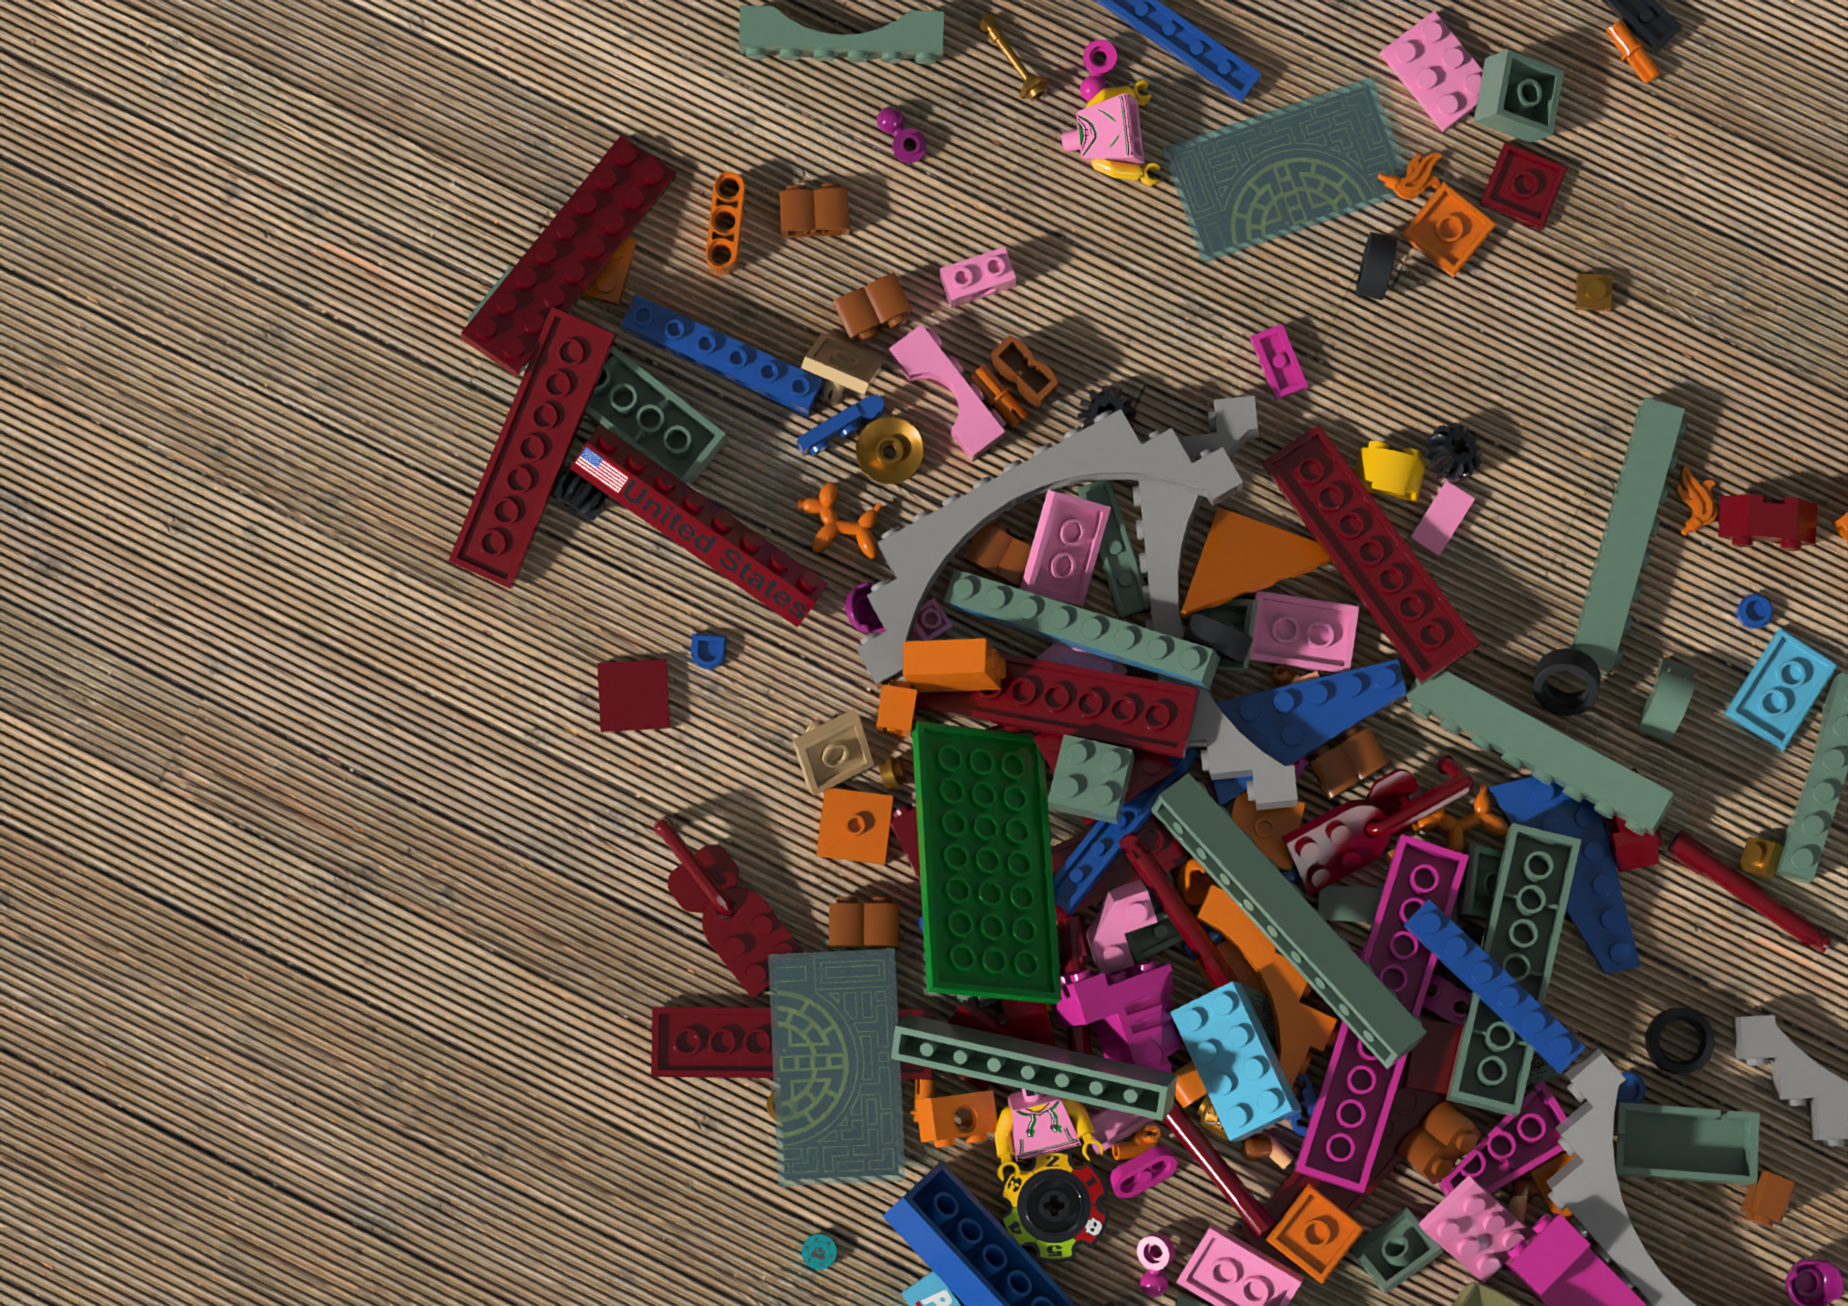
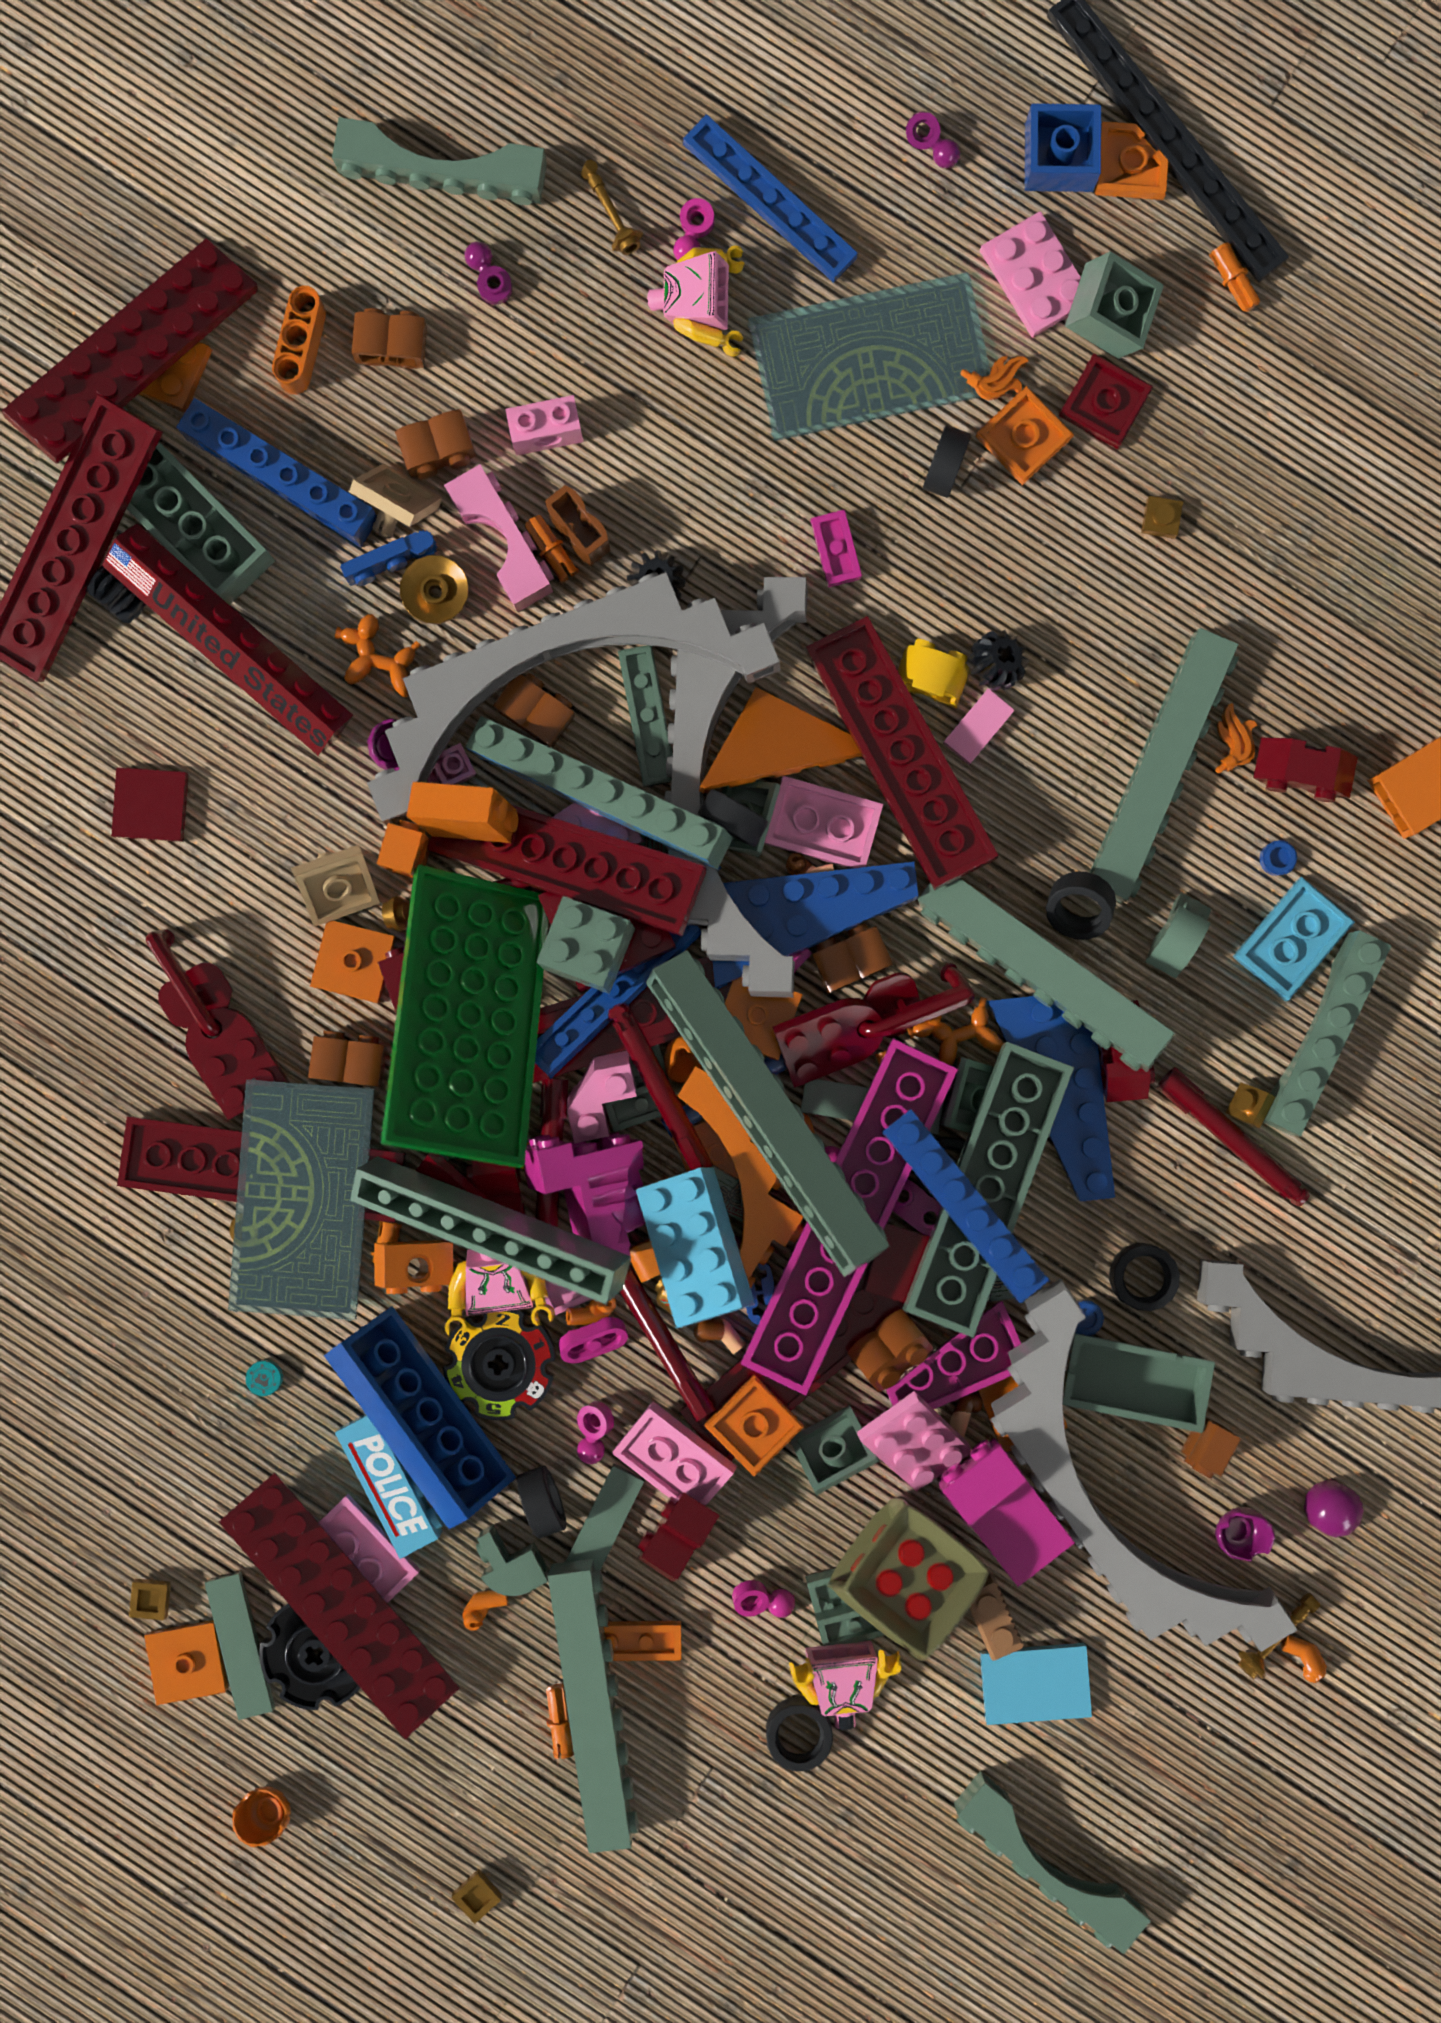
camera: 10 degrees right, 5 degrees up
(708, 650) = (230, 768): blue tile -> none
(1065, 548) = (595, 708): bright pink plate -> none

